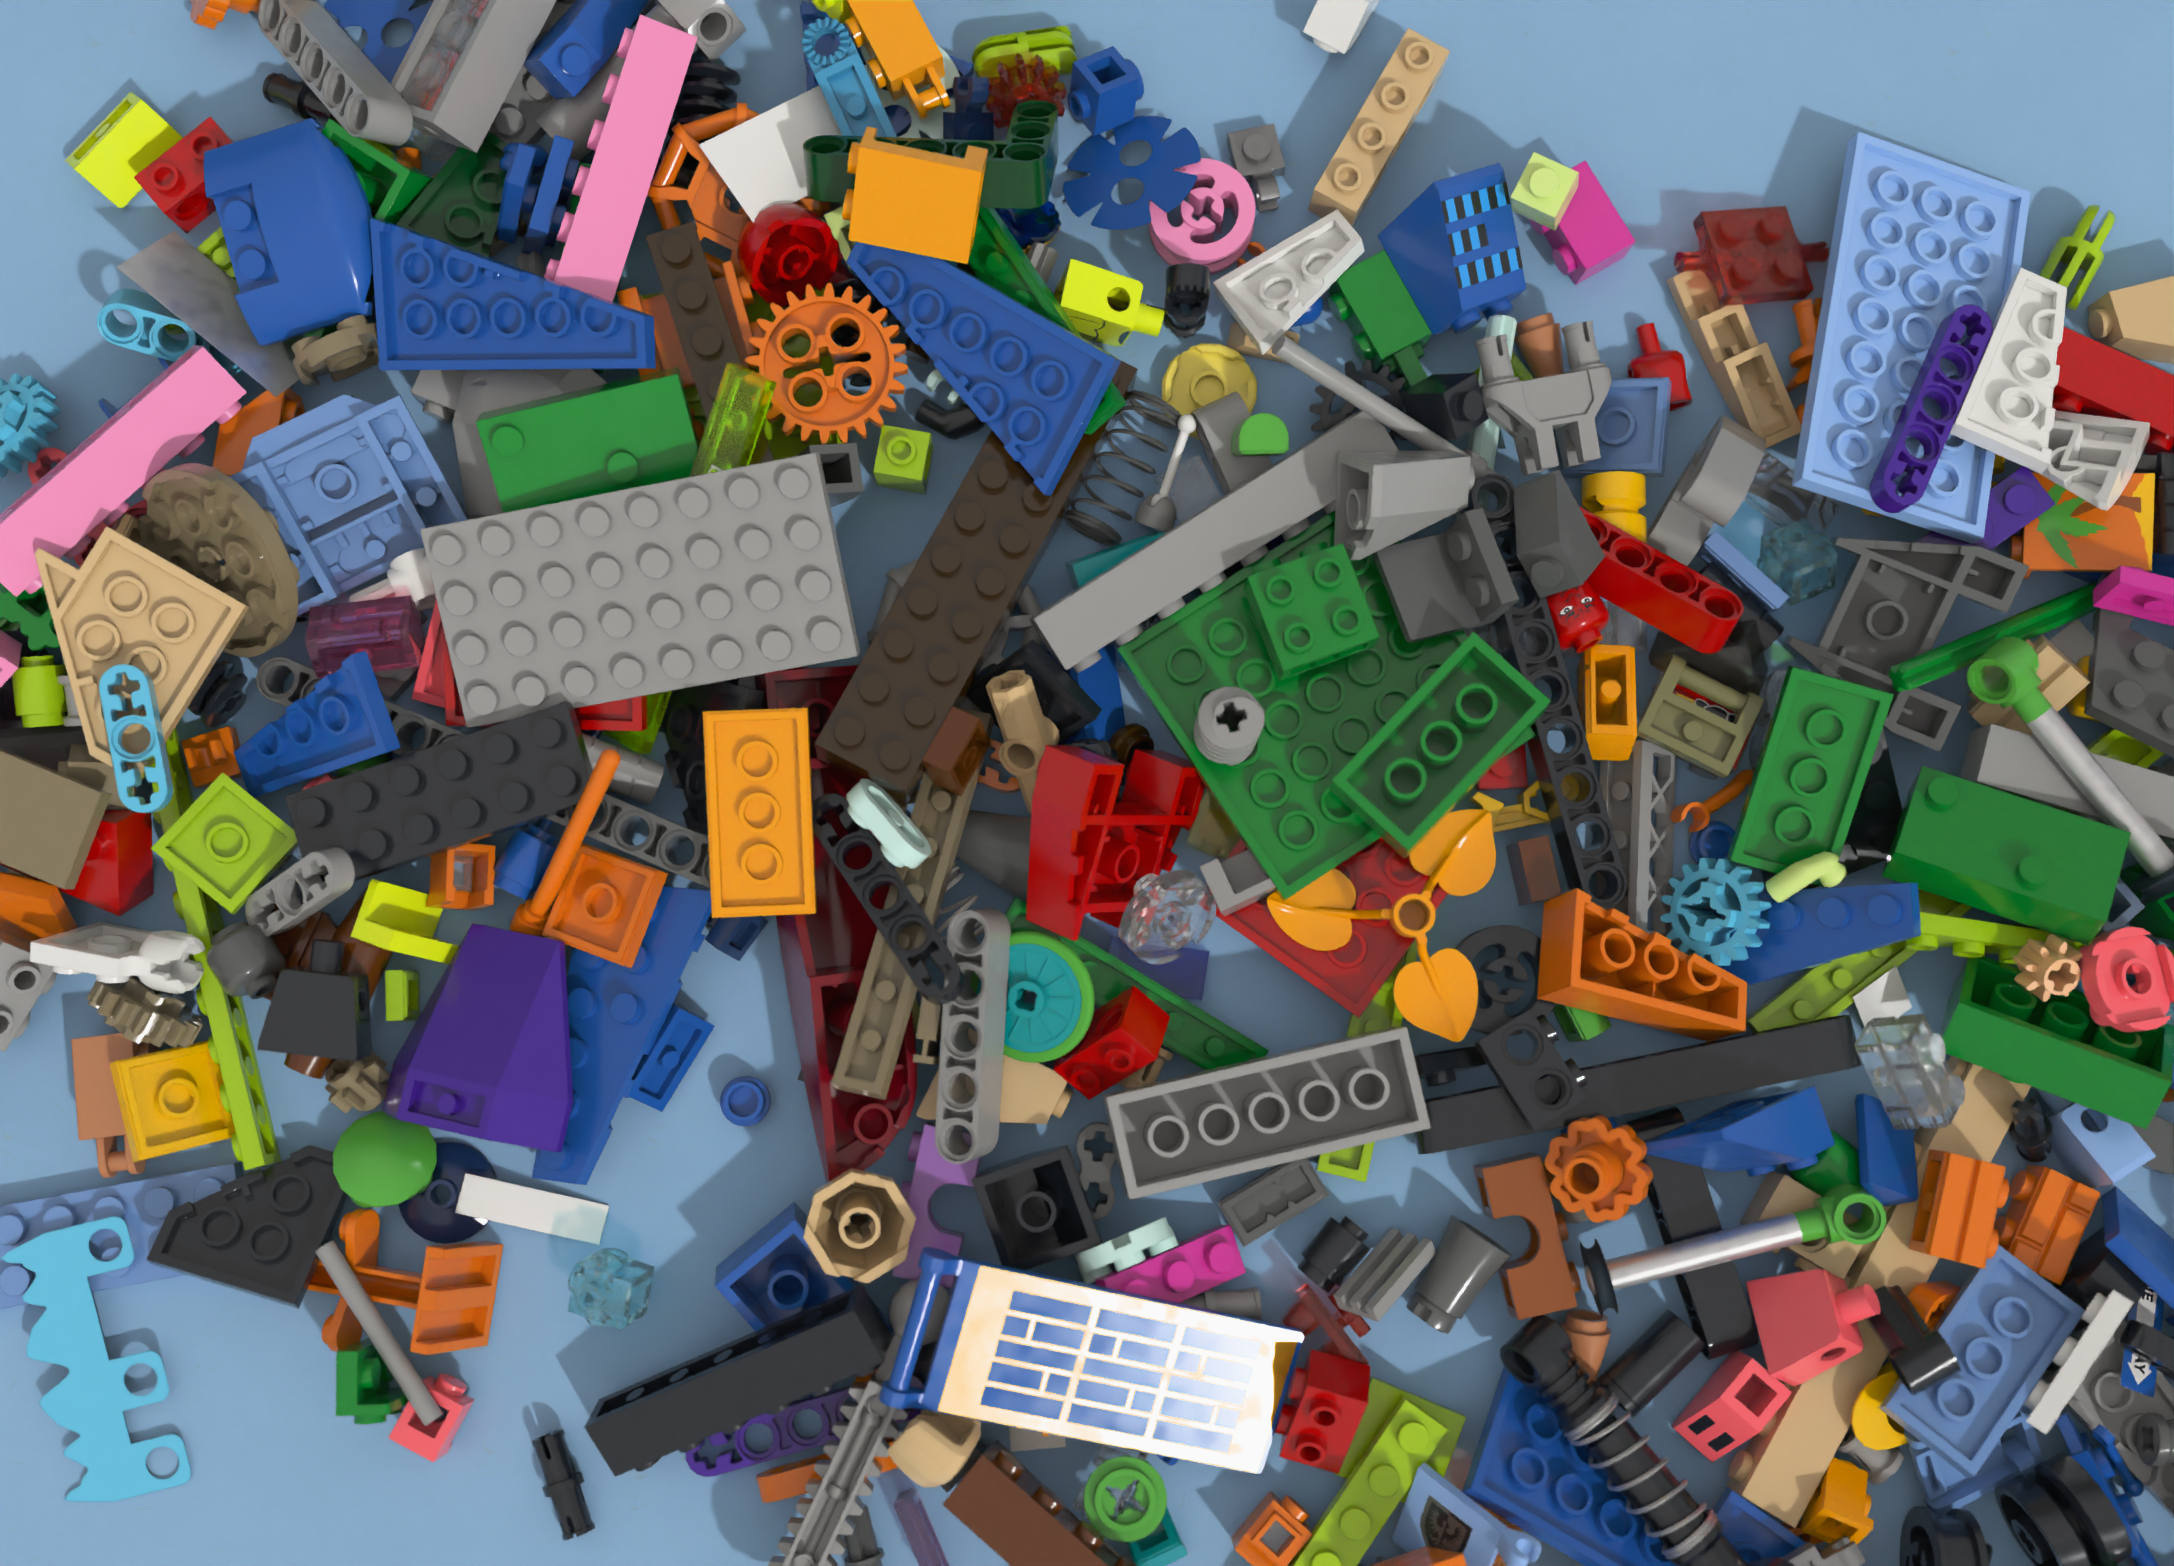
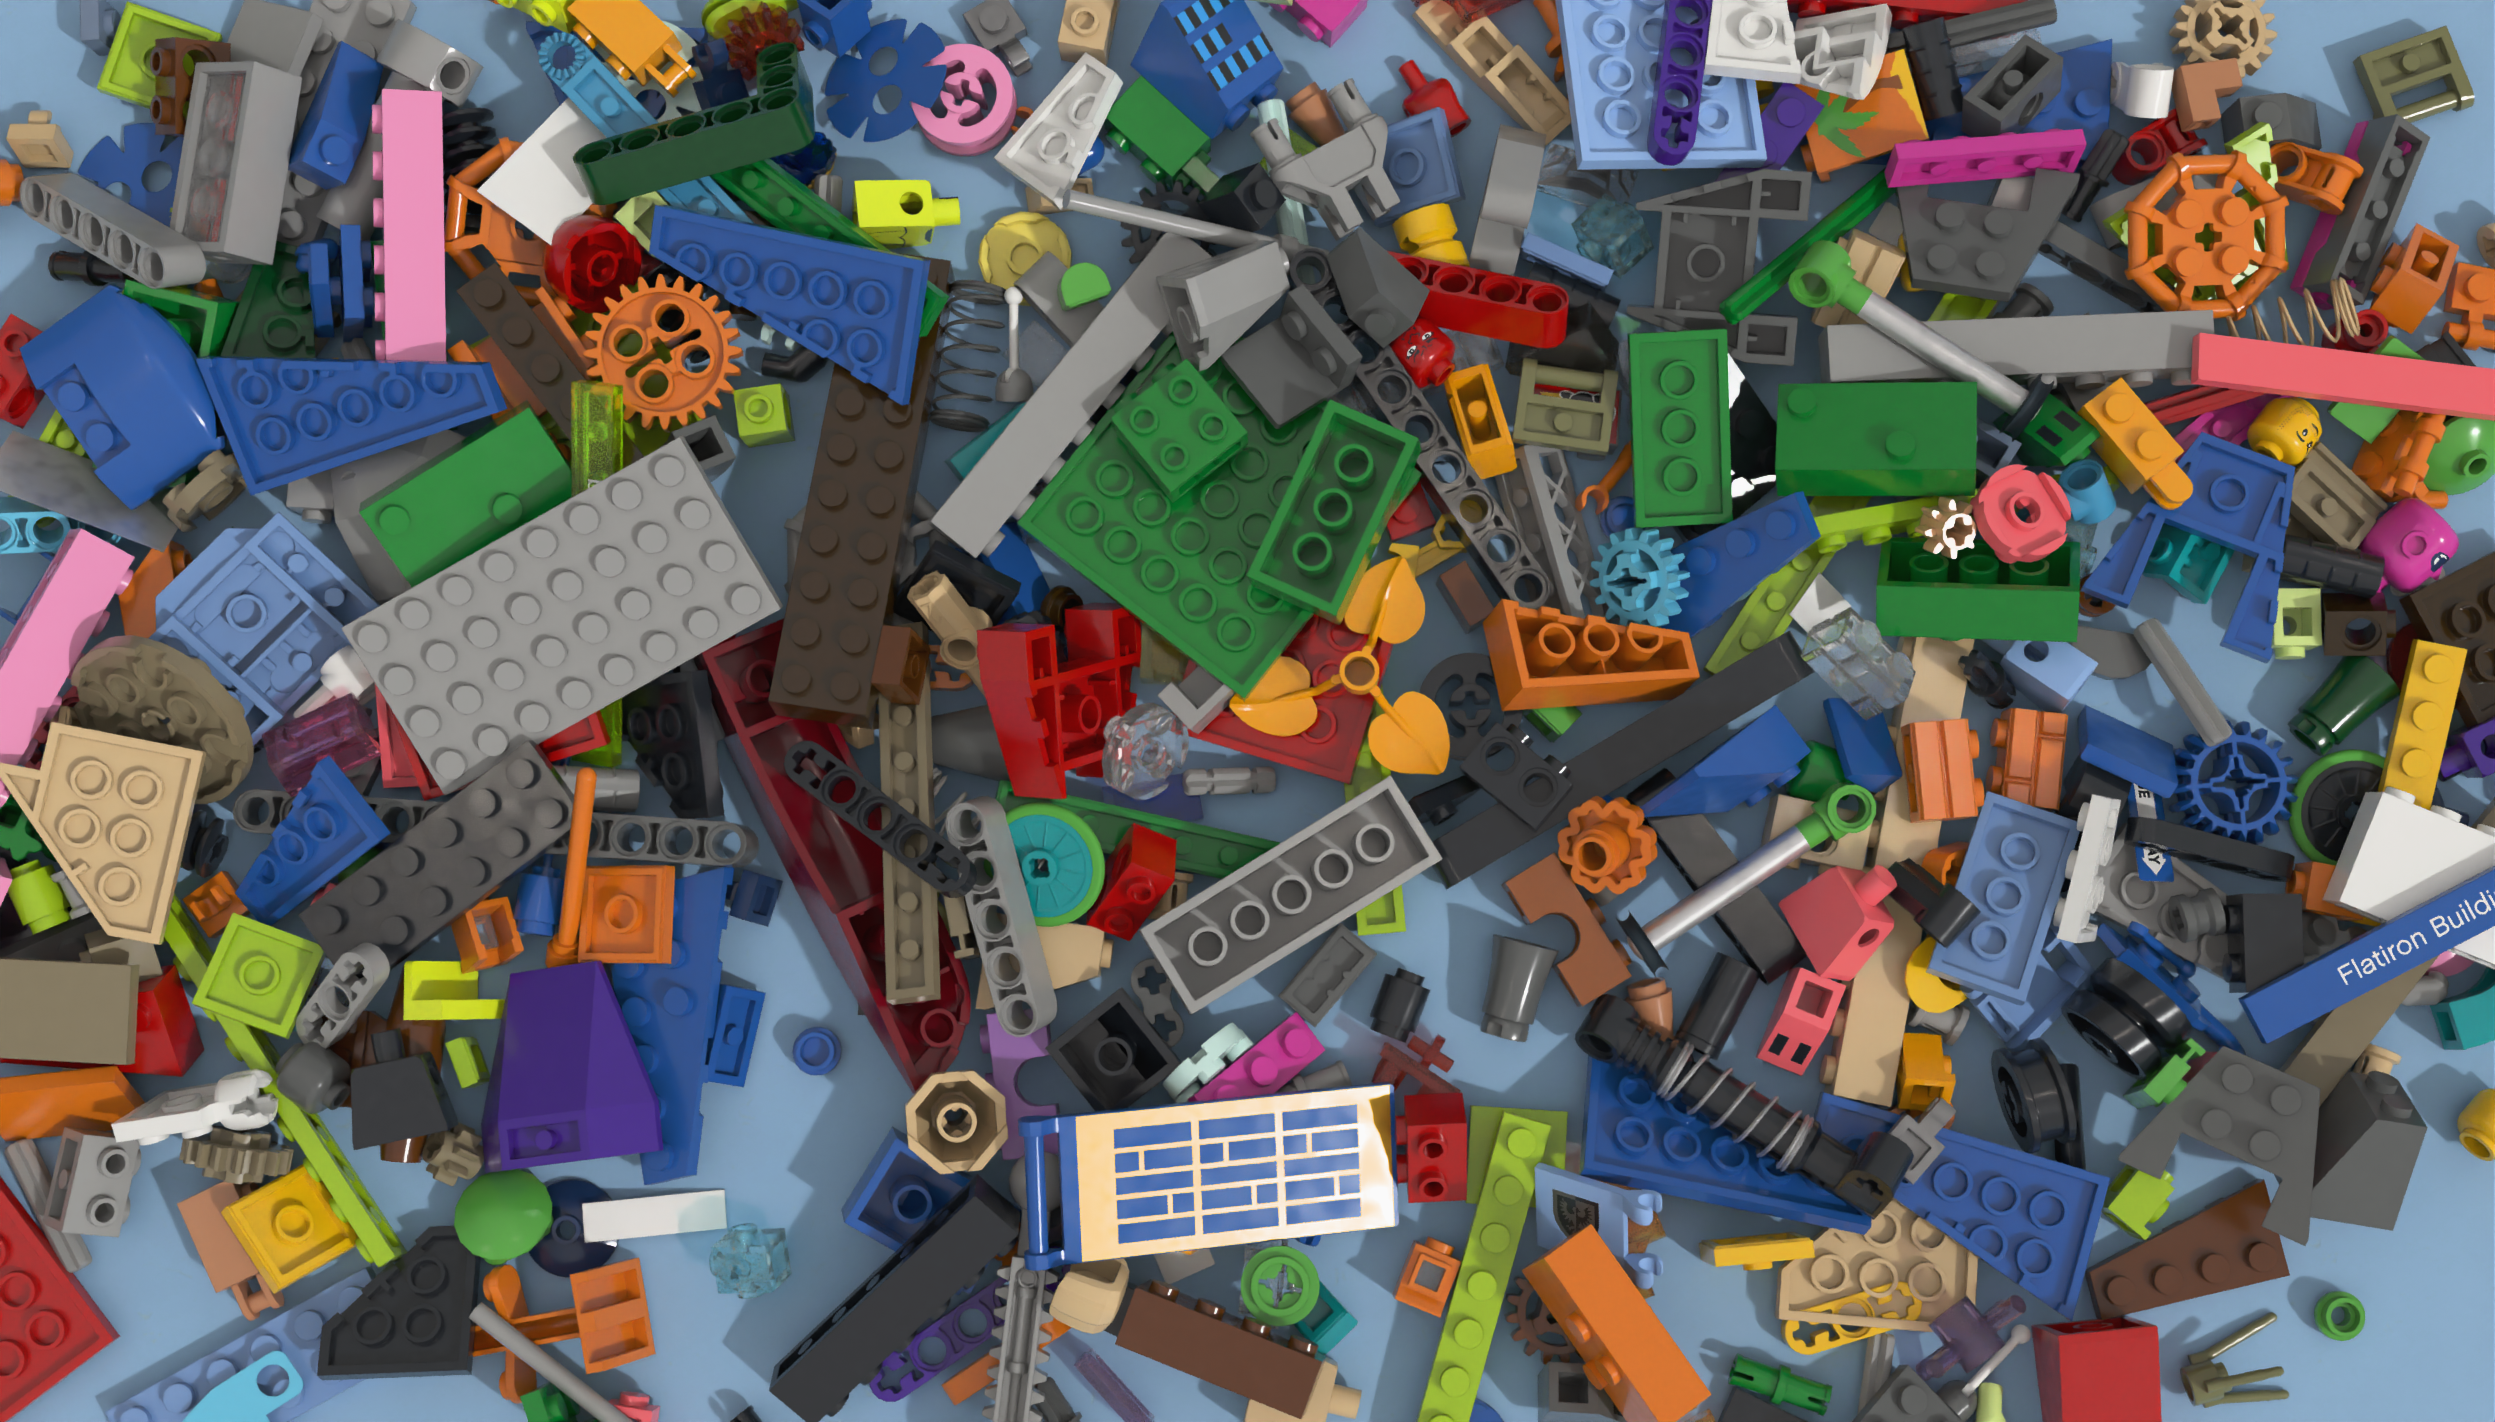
camera: 15 degrees left, 0 degrees up
(115, 728) = (139, 867): medium azure beam -> none
(759, 812) = (739, 780): light orange tile -> none
(877, 811) = (850, 745): light aqua plate -> none
(914, 198) = (691, 175): light orange panel -> none
(1186, 285) = (970, 168): black connector -> none
(1239, 972) = (1229, 781): none -> light grey axle
(1240, 712) = (1149, 544): light grey piece -> none
(1378, 1272) = (1449, 1007): light grey tile -> none
(1804, 872) = (1702, 516): yellowish green arm -> none

